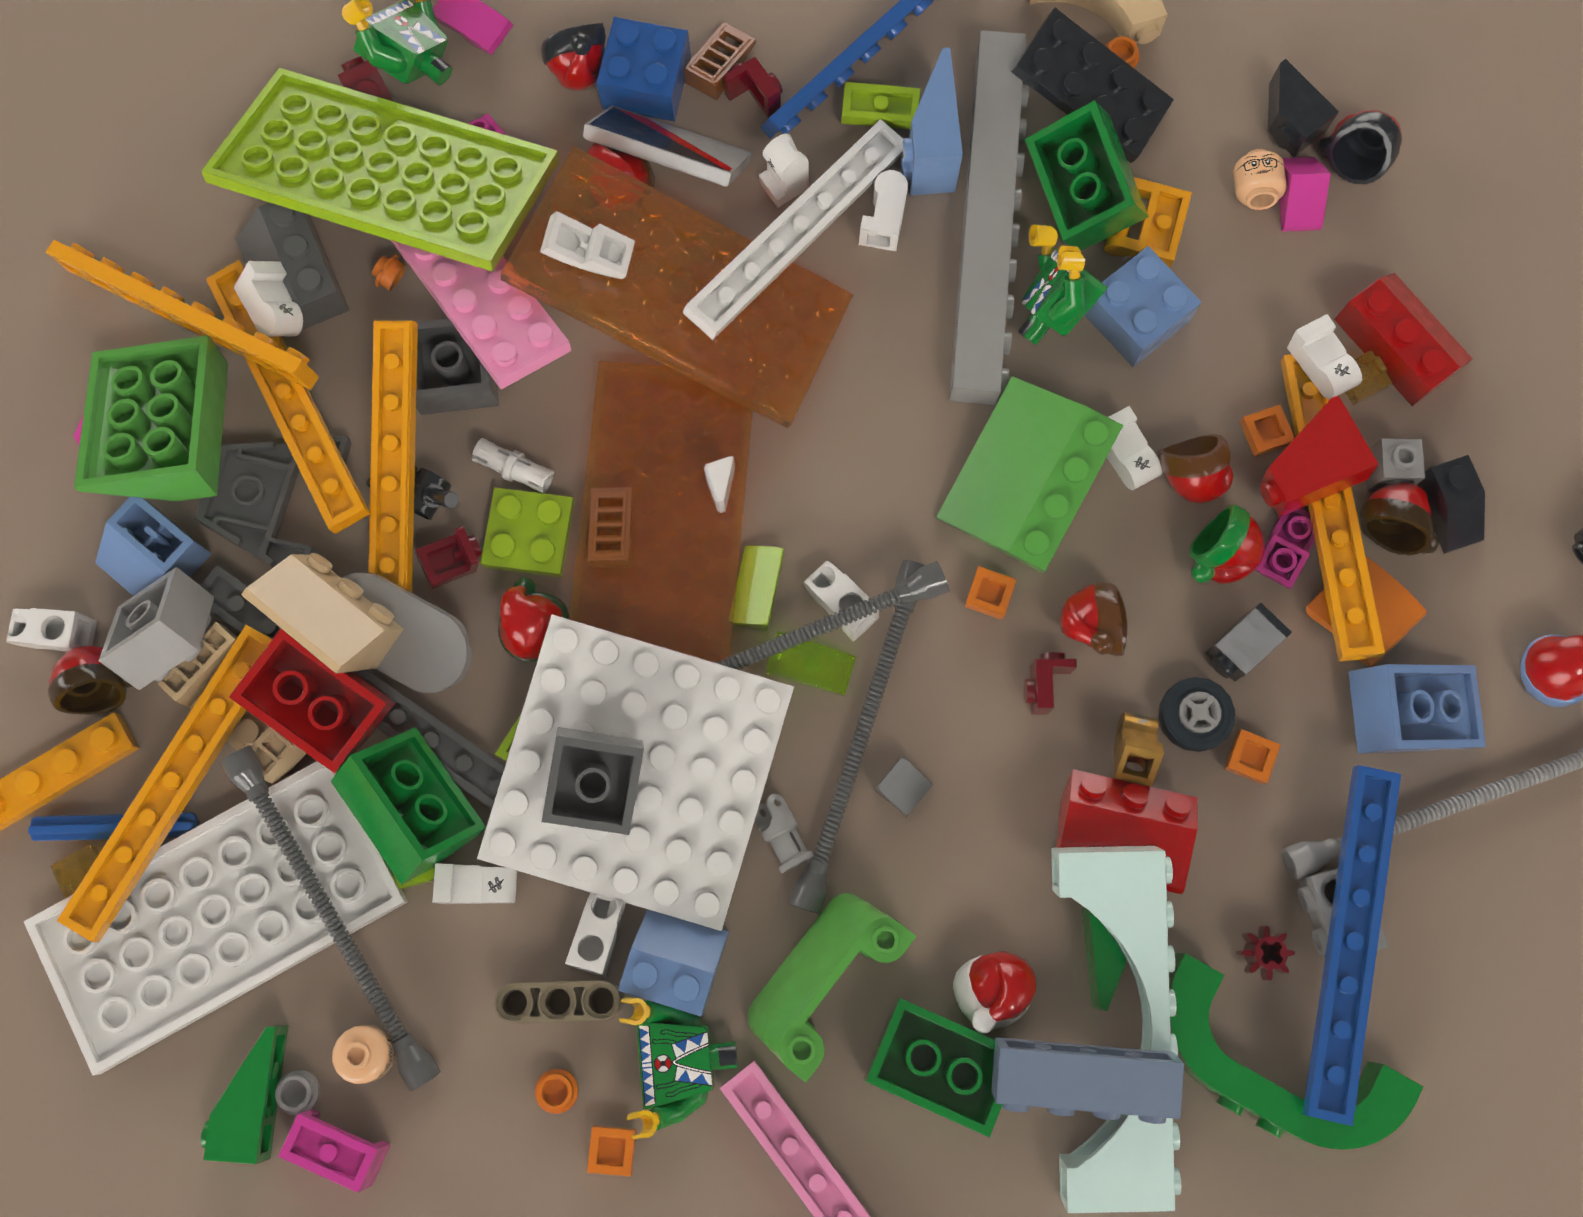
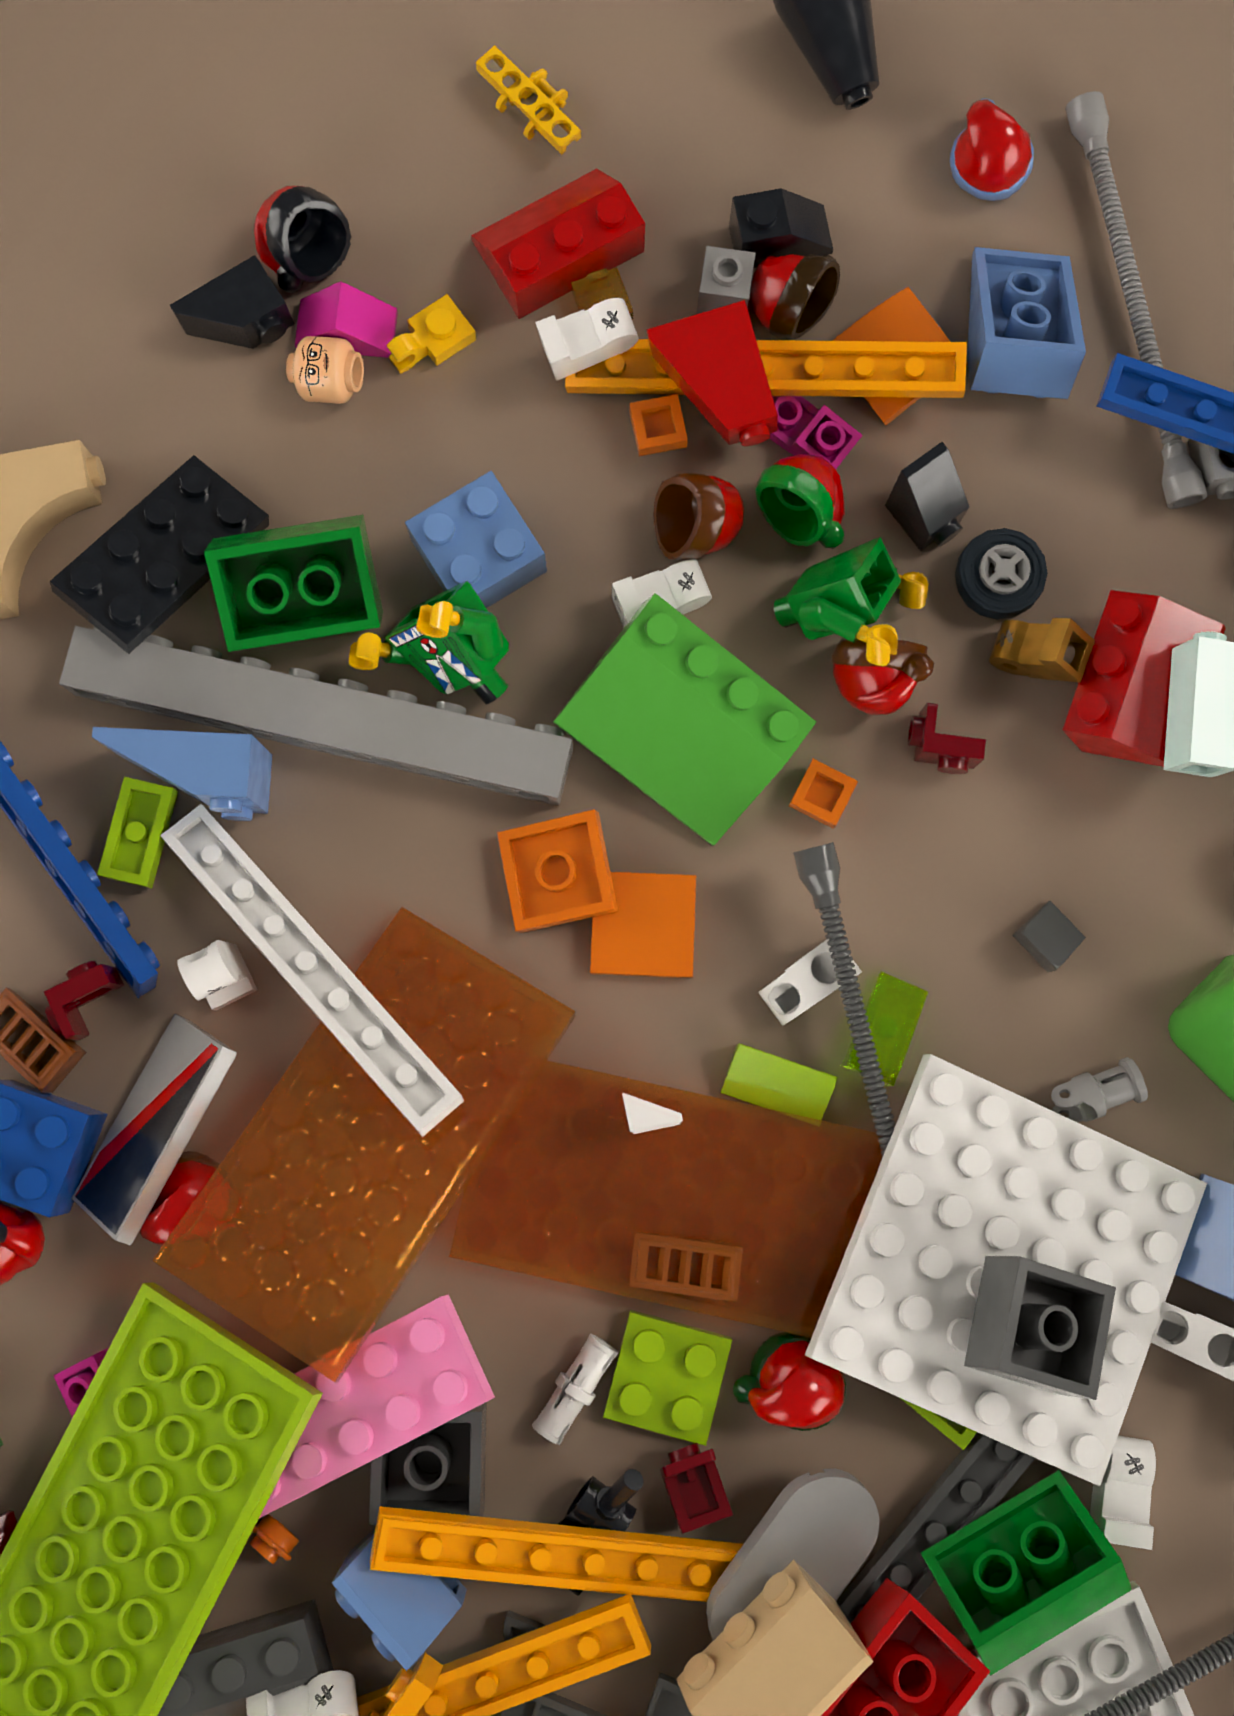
camera: 85 degrees left, 5 degrees up
(347, 353) = (398, 1607): none -> medium blue slope
(589, 249) = (312, 1257): white slope -> none
(811, 887) = (1164, 1065): dark grey hose -> none
(866, 472) = (650, 930): none -> orange tile
(889, 202) = (278, 839): white leg -> none
(897, 401) = (557, 871): none -> orange tile
(1125, 49) = (113, 505): orange plate -> none
(1157, 585) = (849, 594): none -> green torso
(1162, 228) = (352, 492): light orange plate -> none
(1252, 756) = (1058, 519): orange plate -> none
(1307, 259) = (435, 331): none -> yellow plate
(1528, 297) = (524, 87): none -> yellow piece

